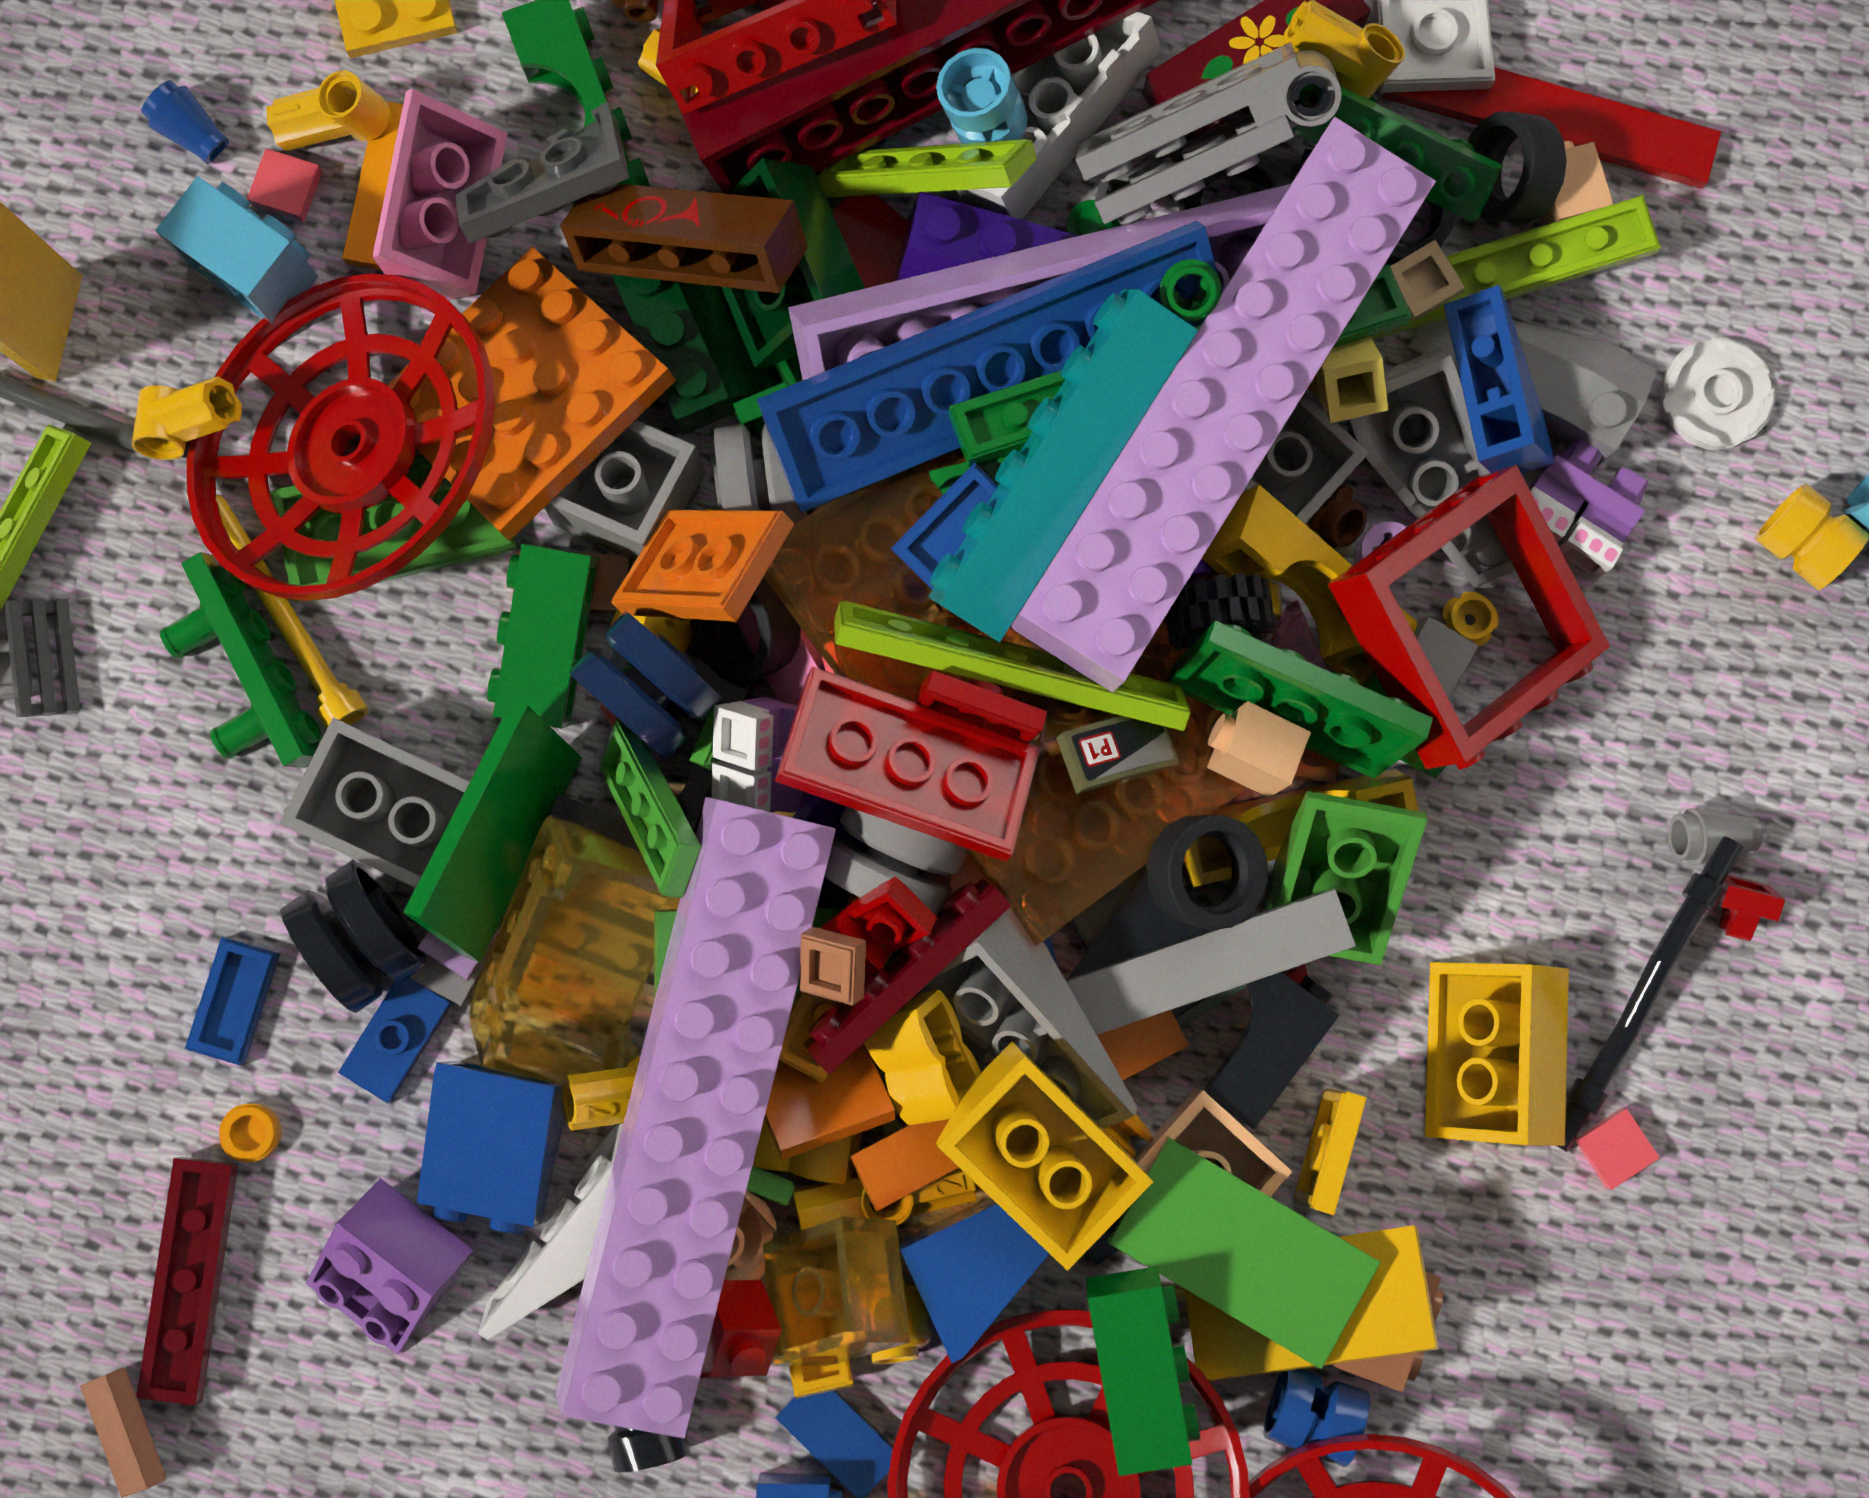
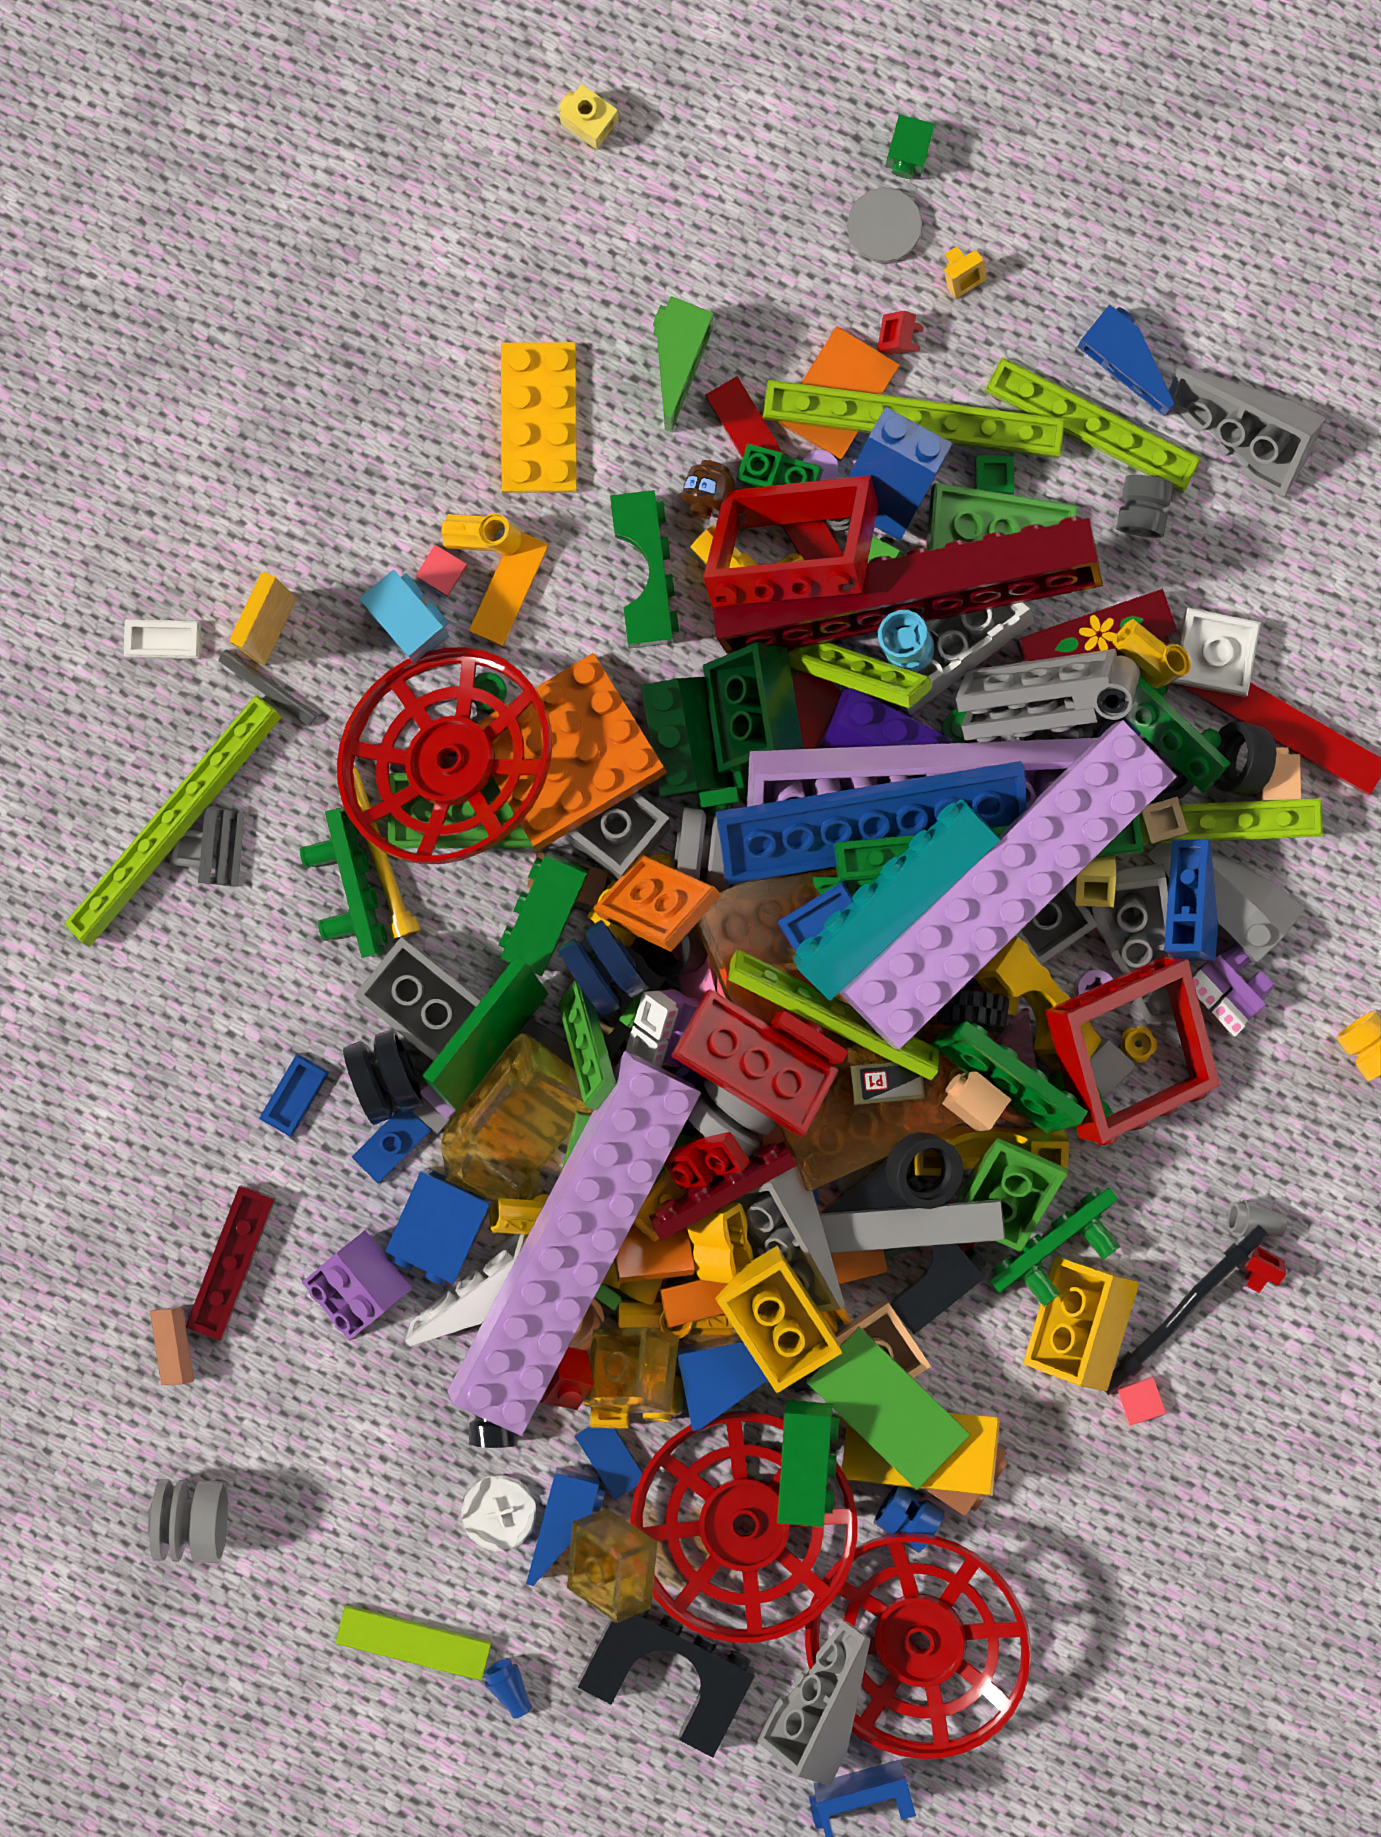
camera: 20 degrees right, 5 degrees up
(173, 416) = (339, 713): yellow piece -> none
(181, 119) = (386, 514): blue cone -> none
(250, 1132) = (287, 1180): light orange tile -> none
(395, 324) = (490, 683): none -> green tile
(432, 161) = (544, 614): bright pink slope -> none
(565, 171) = (624, 621): dark grey wing -> none
(686, 237) = (694, 684): reddish brown brick -> none
(832, 965) = (679, 1176): nougat tile -> none
(1201, 300) = (1002, 811): green cone -> none
(1329, 1150) = (958, 1358): yellow tile -> none
(1339, 518) = (1071, 960): reddish brown plate -> none
(1436, 912) = (1083, 1222): none -> green plate
(1700, 406) = (1325, 935): white tile -> none

